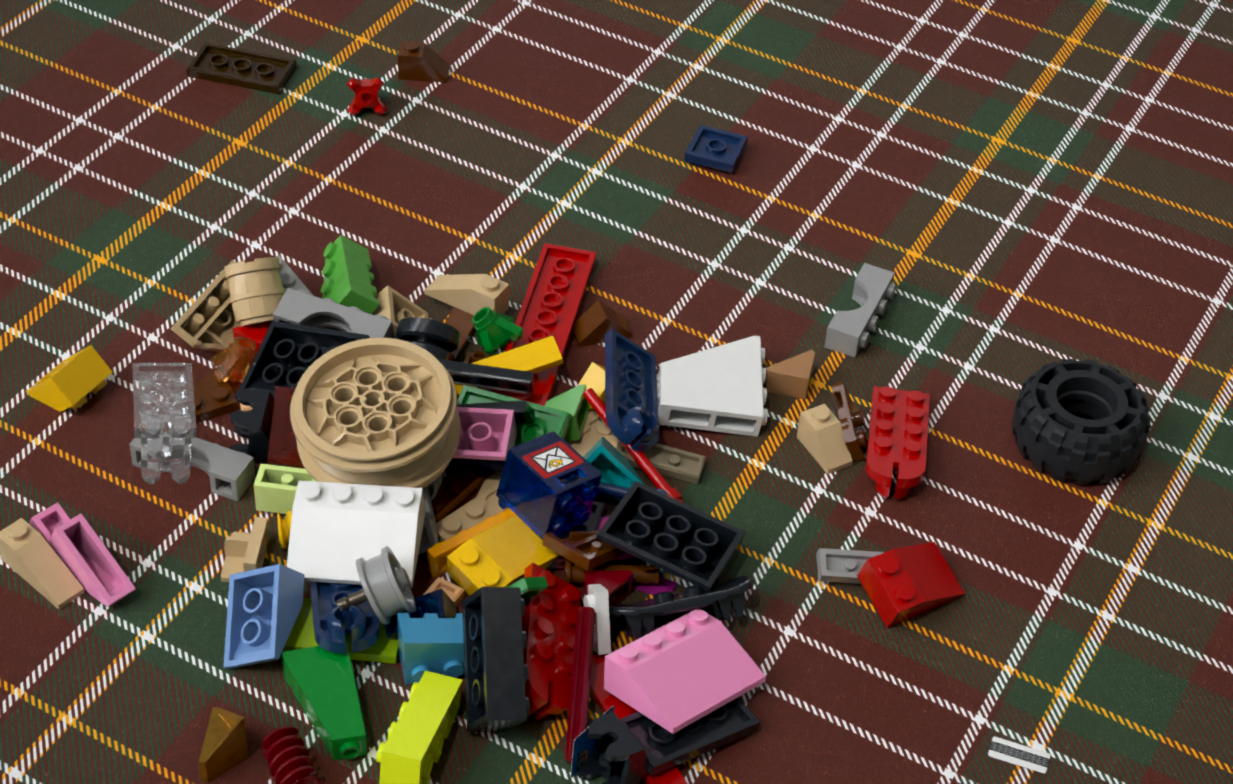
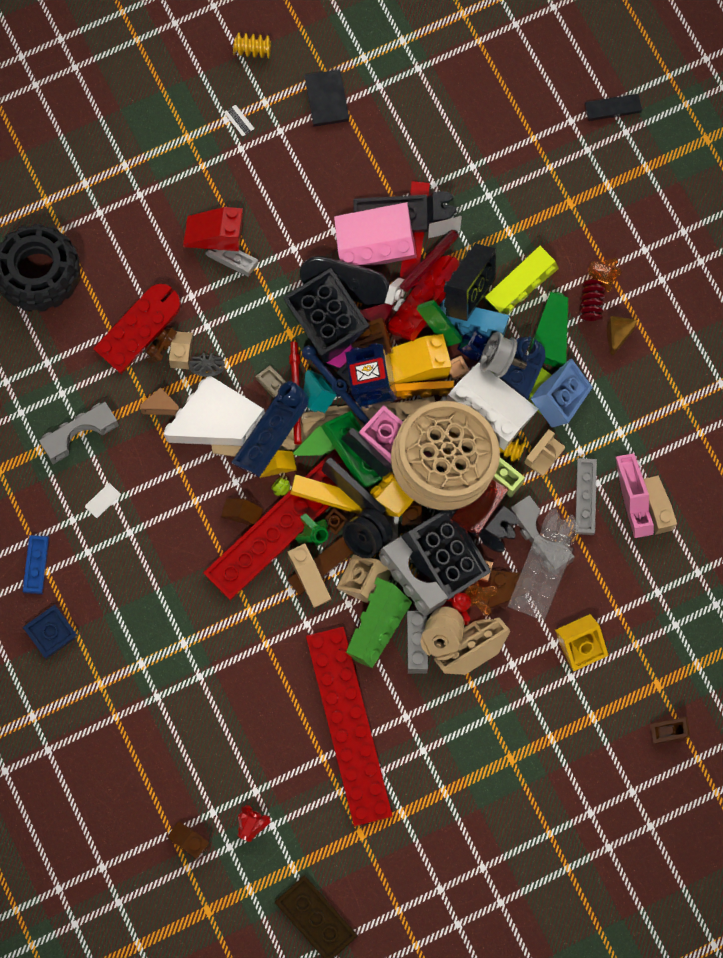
camera: 145 degrees left, 30 degrees up
(155, 530) = (586, 495): none -> light grey plate
(253, 331) = (461, 602): none -> red plate
(319, 208) = (349, 727): none -> red plate
(573, 366) = (281, 487): none -> lime plate
(772, 276) = (102, 500): none -> white sticker
(776, 434) = (206, 363): none -> dark grey wheel
(788, 195) = (36, 564): none -> blue tile

